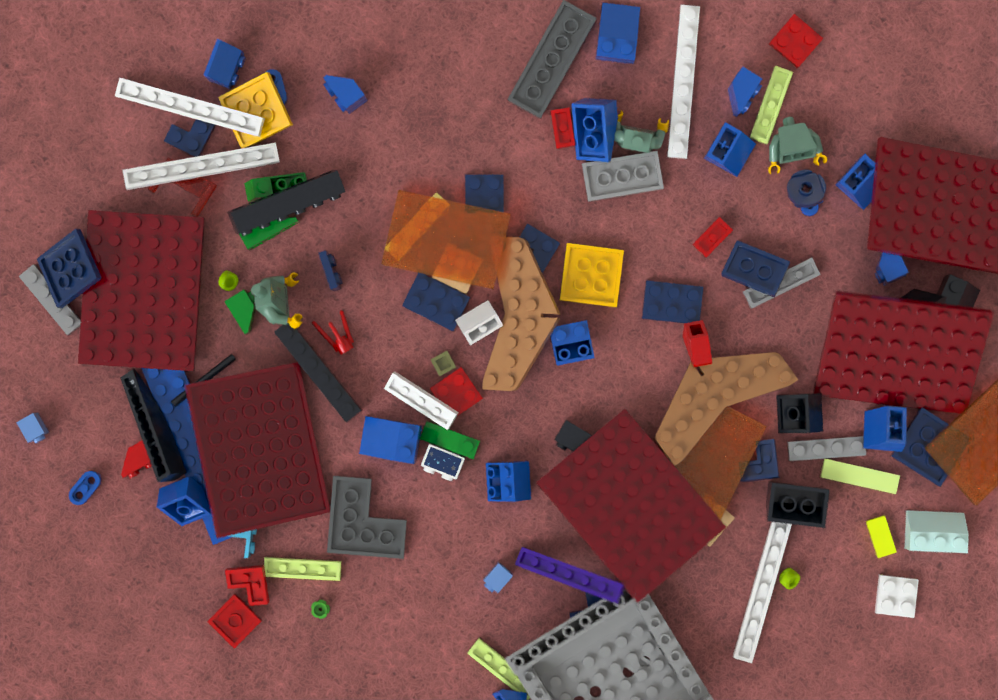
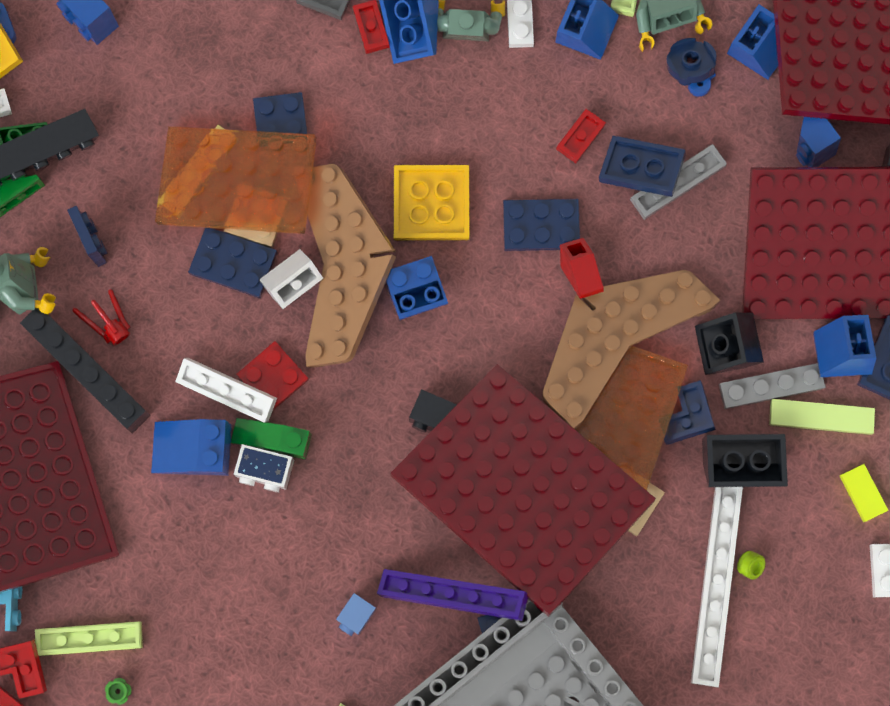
camera: 10 degrees left, 10 degrees down
(352, 528) = (151, 573): dark grey plate -> none
(443, 363) = (250, 339): olive plate -> none
(508, 481) = (355, 482): blue slope -> none
(542, 244) = (362, 173): dark blue plate -> none
(622, 176) = (455, 75): light grey plate -> none

